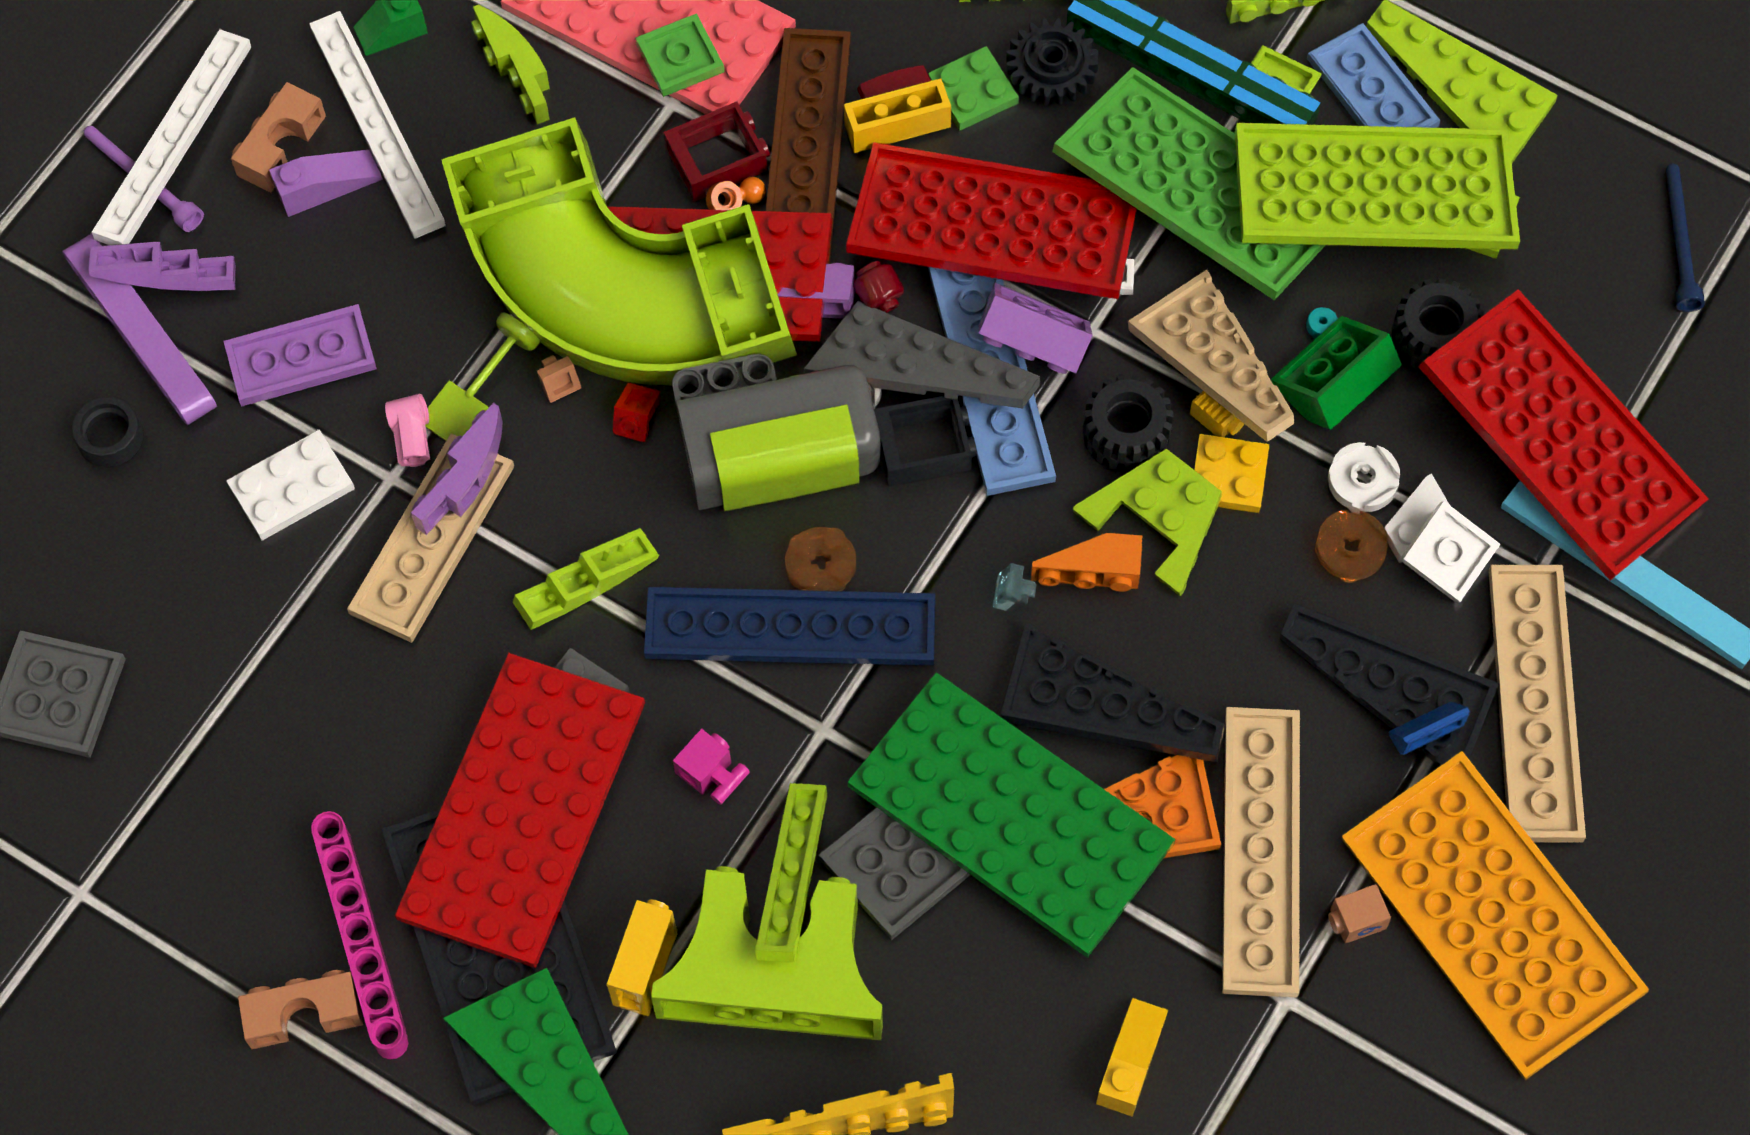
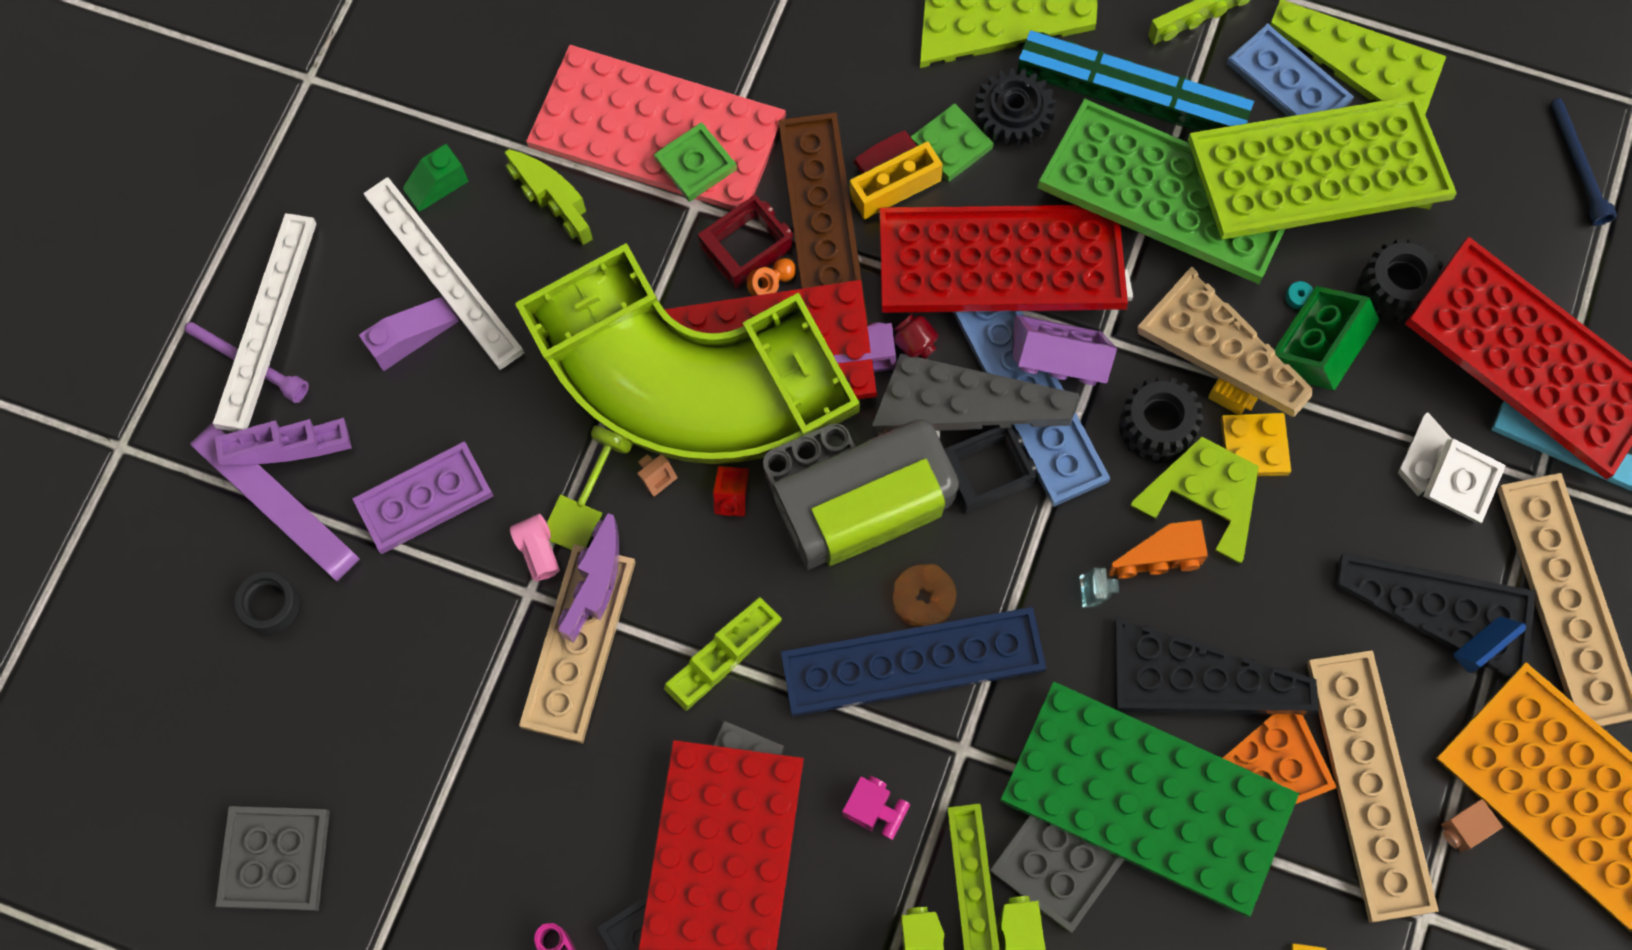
camera: 10 degrees left, 5 degrees up
(289, 114) = (363, 278): nougat arch -> none
(290, 484) = (441, 618): white plate -> none
(1290, 71) = (1207, 74): lime tile -> none
(1352, 526) = (1378, 507): clear orange plate -> none
(1367, 459) = (1367, 443): white plate -> none

